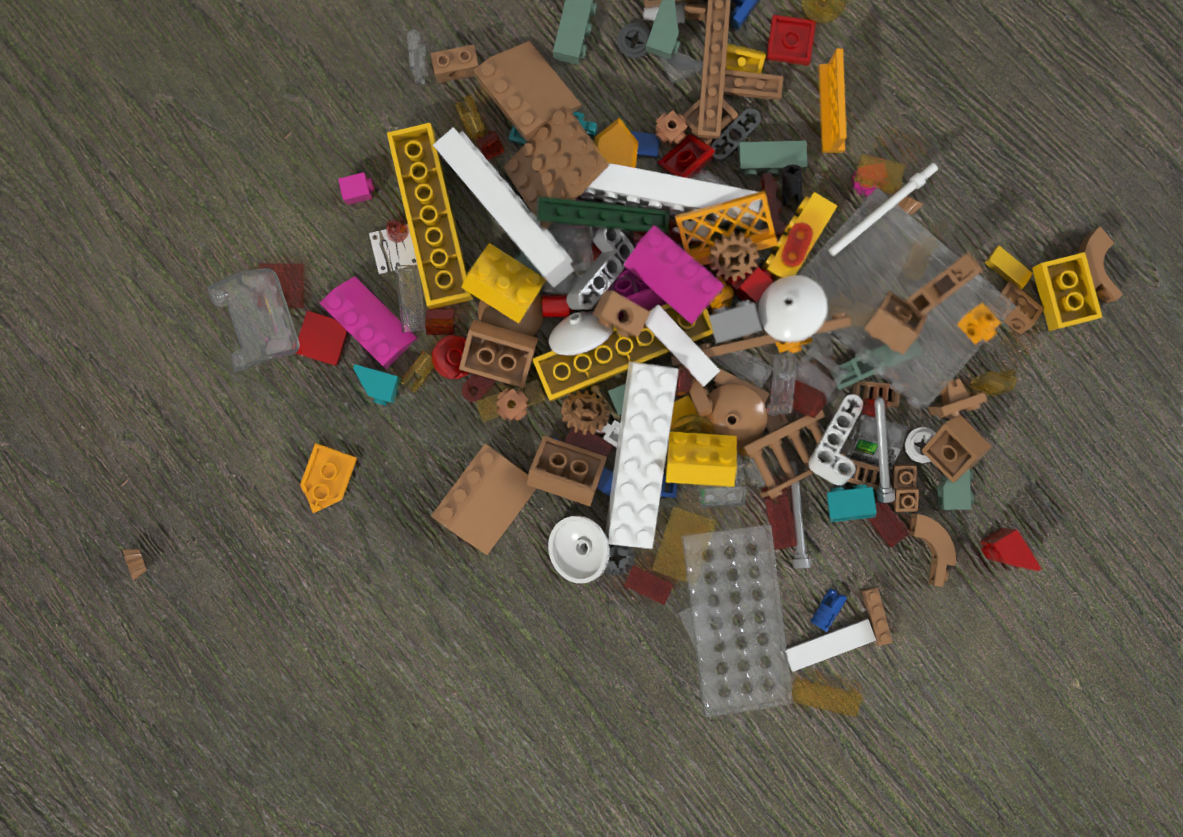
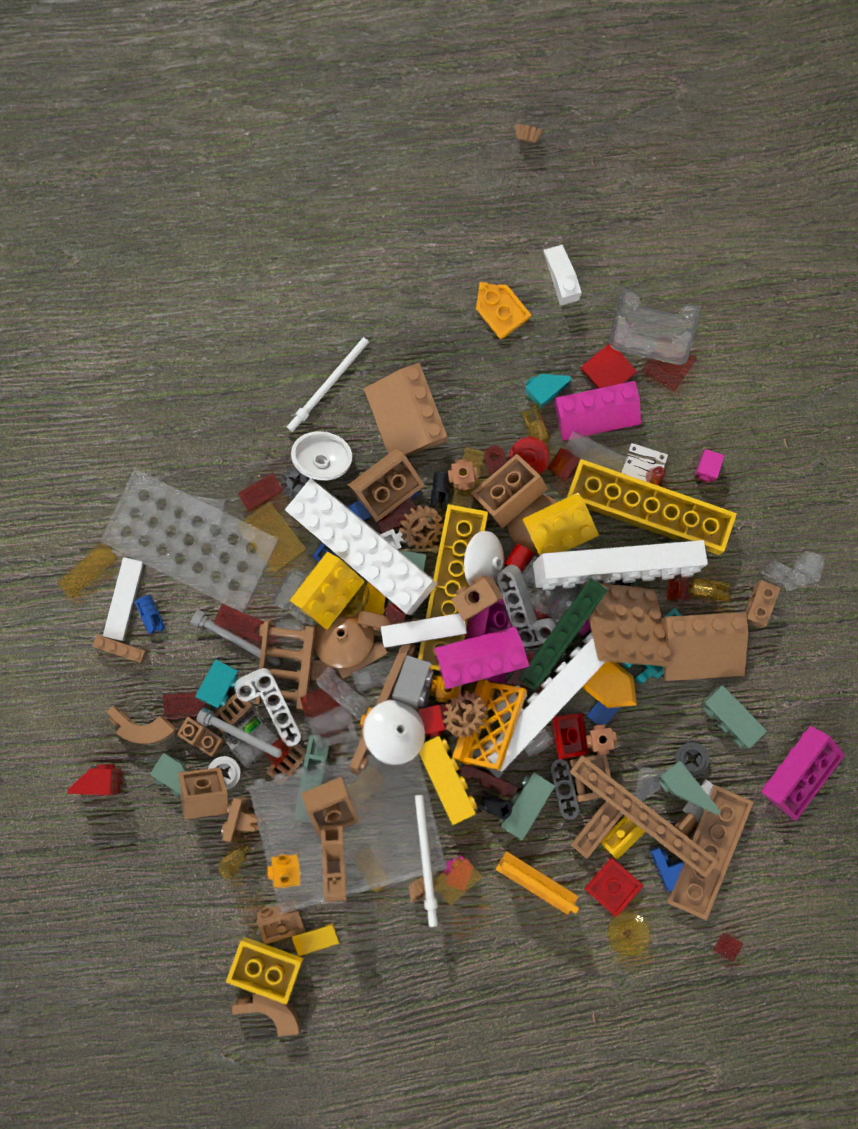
camera: 125 degrees right, 5 degrees down
(256, 439) = (562, 275): none -> white slope
(392, 42) = (810, 566): none -> clear brick
(533, 421) = (440, 486): none -> black hinge
(548, 595) = (303, 413): none -> white bar
(795, 245) = (440, 770): clear red plate -> none

